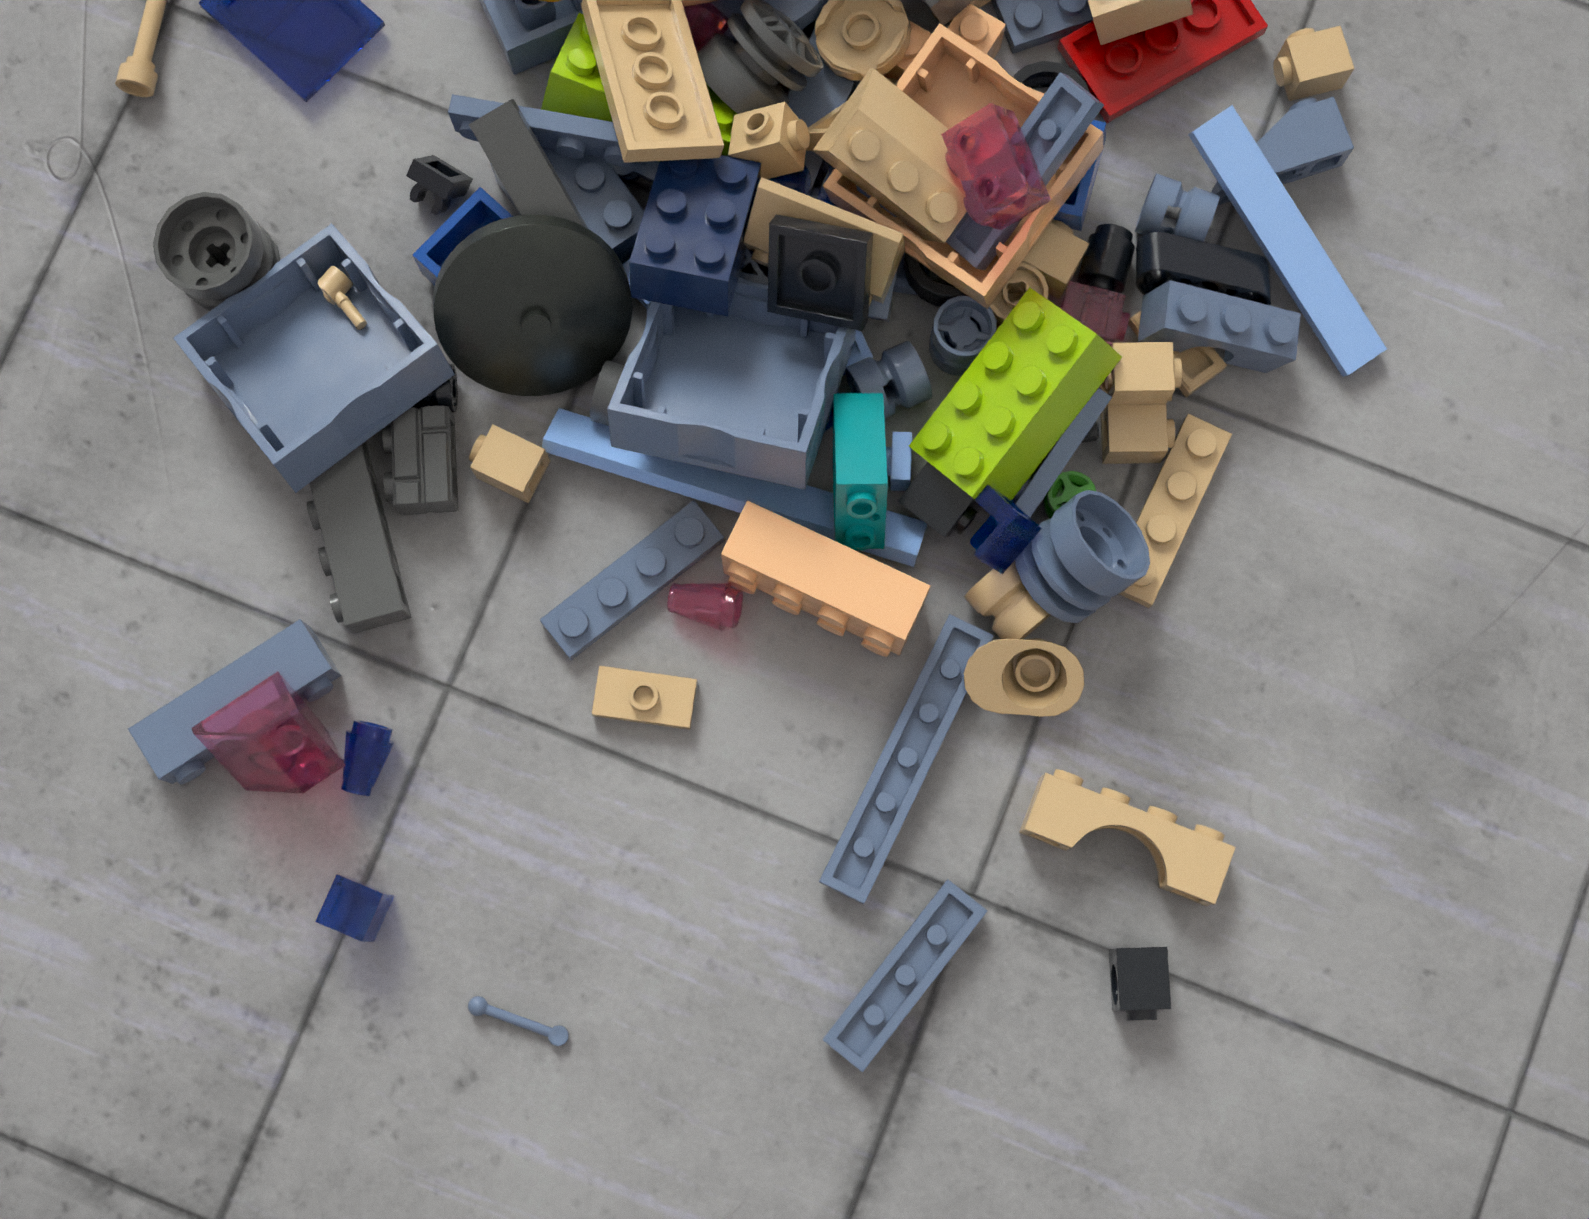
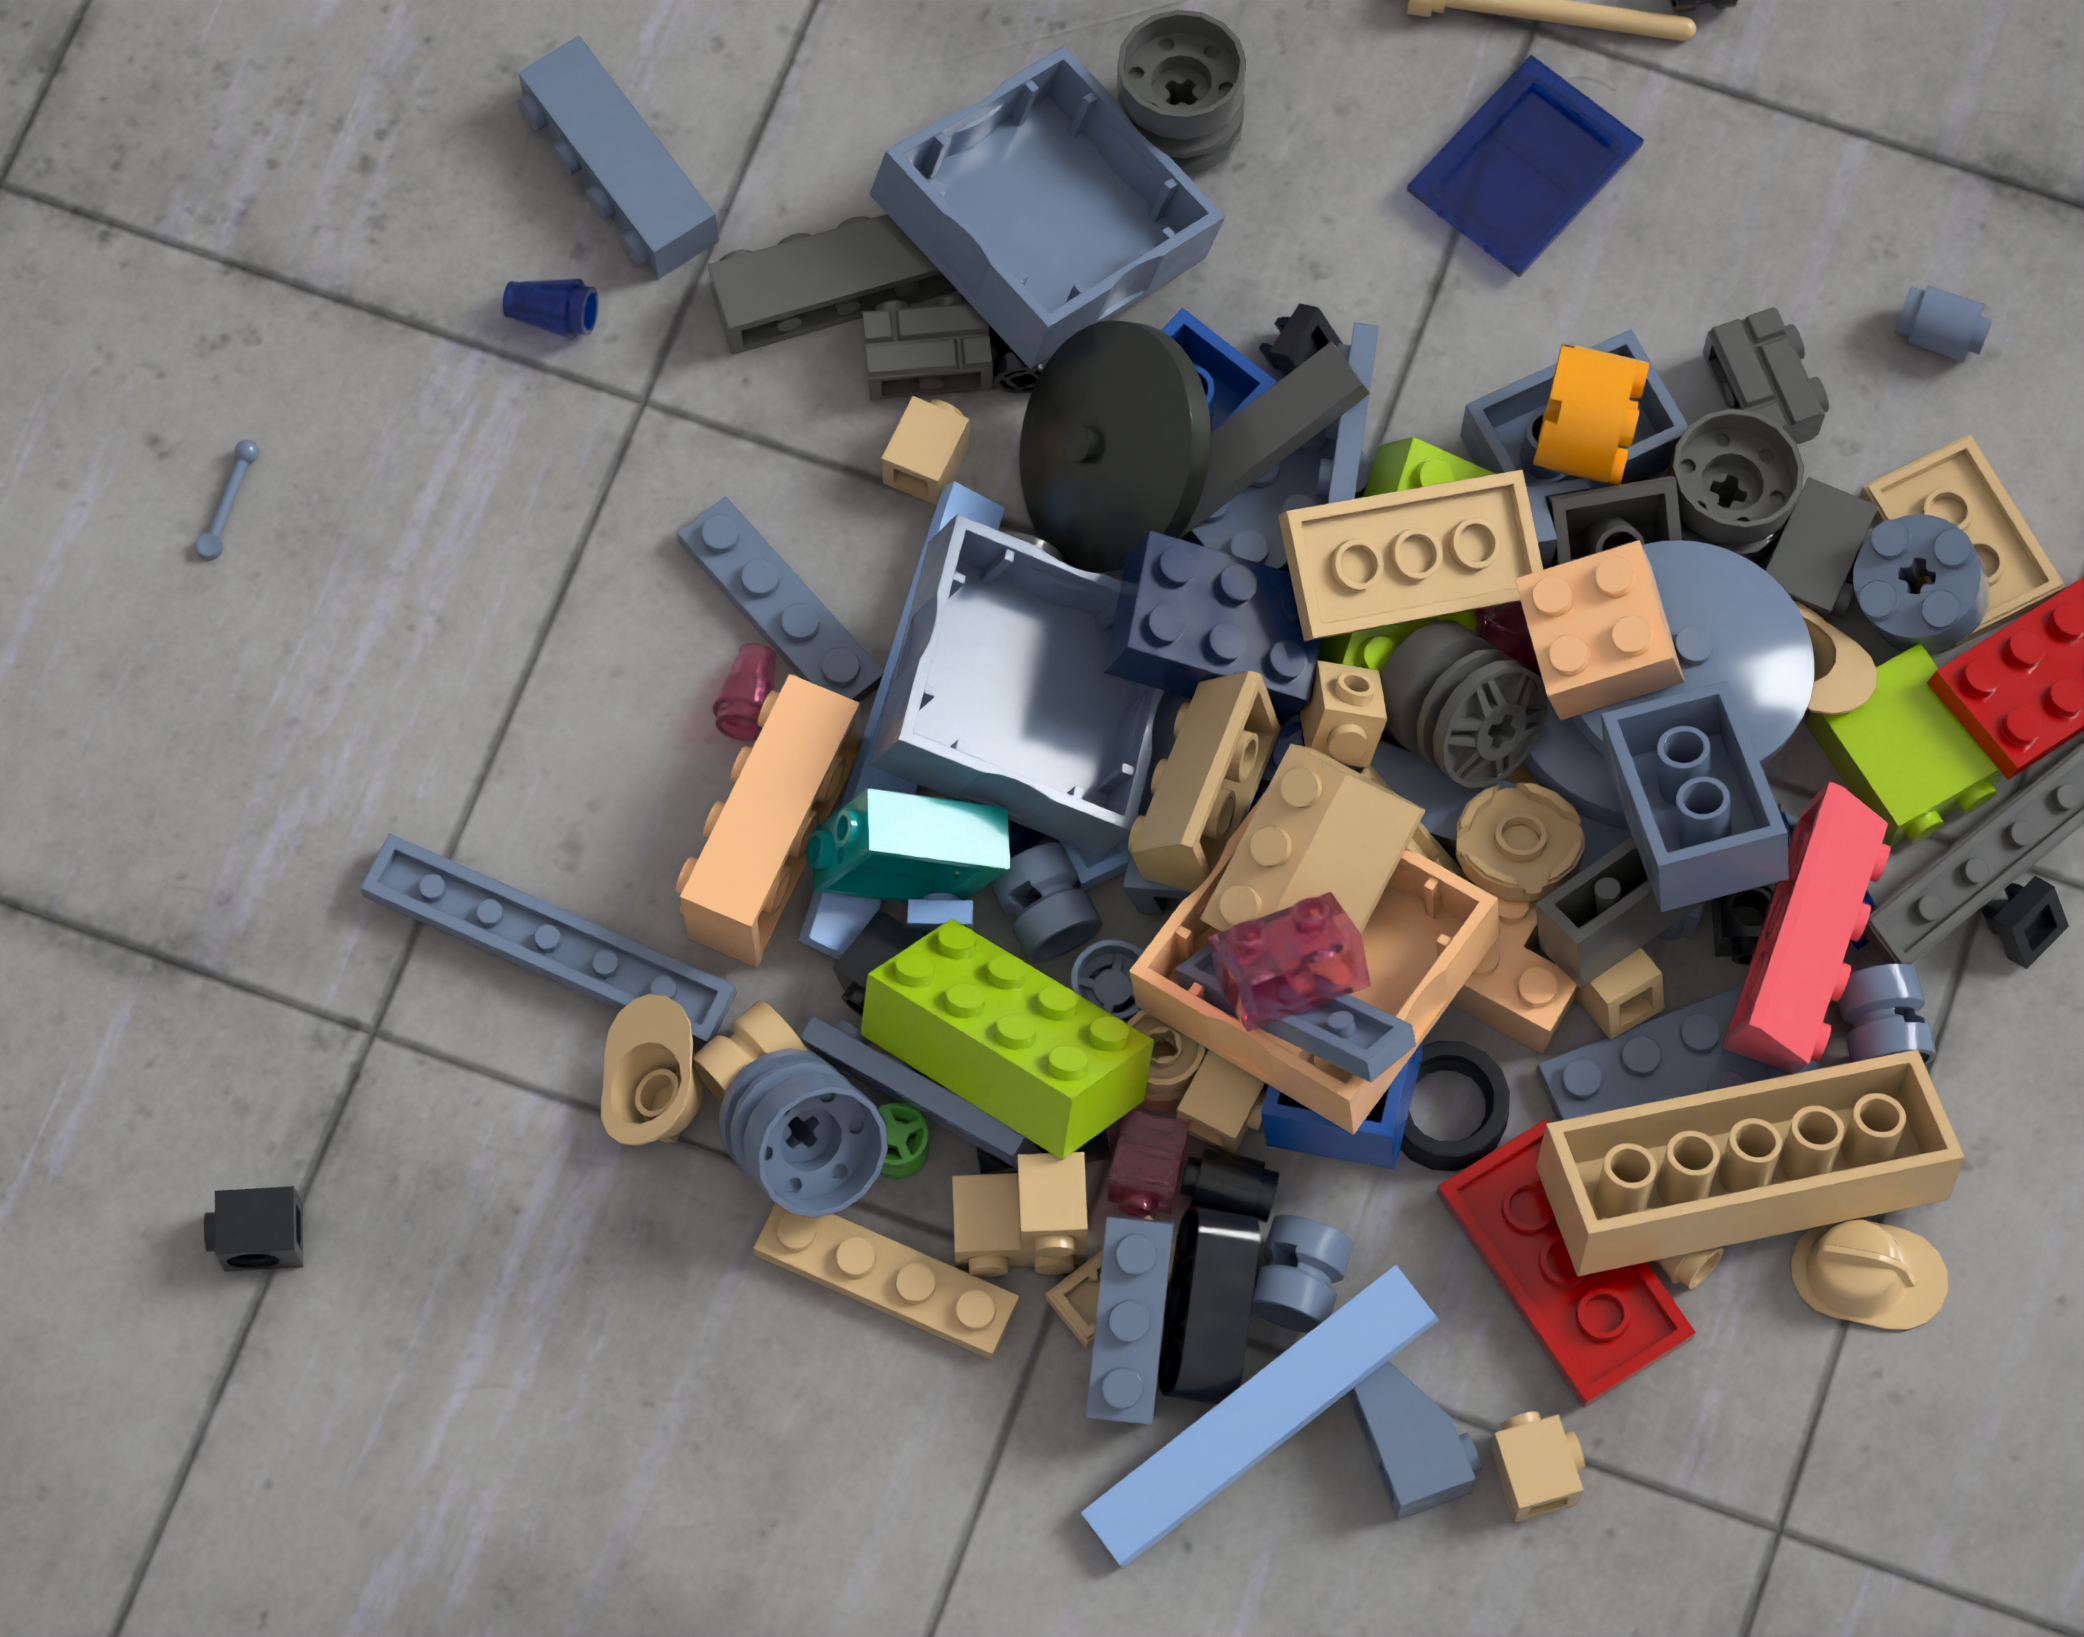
camera: 90 degrees right, 10 degrees down
(271, 740) = (568, 195): clear pink slope -> none
(335, 286) = (1143, 230): tan hand -> none
(354, 908) = (363, 302): clear blue panel -> none
(644, 697) = (628, 627): tan plate -> none
(819, 272) = (1149, 762): black plate -> none
(904, 975) = (271, 943): sand blue plate -> none
(1004, 532) = (833, 1028): clear blue panel -> none
(1186, 859) = (412, 1287): tan arch -> none

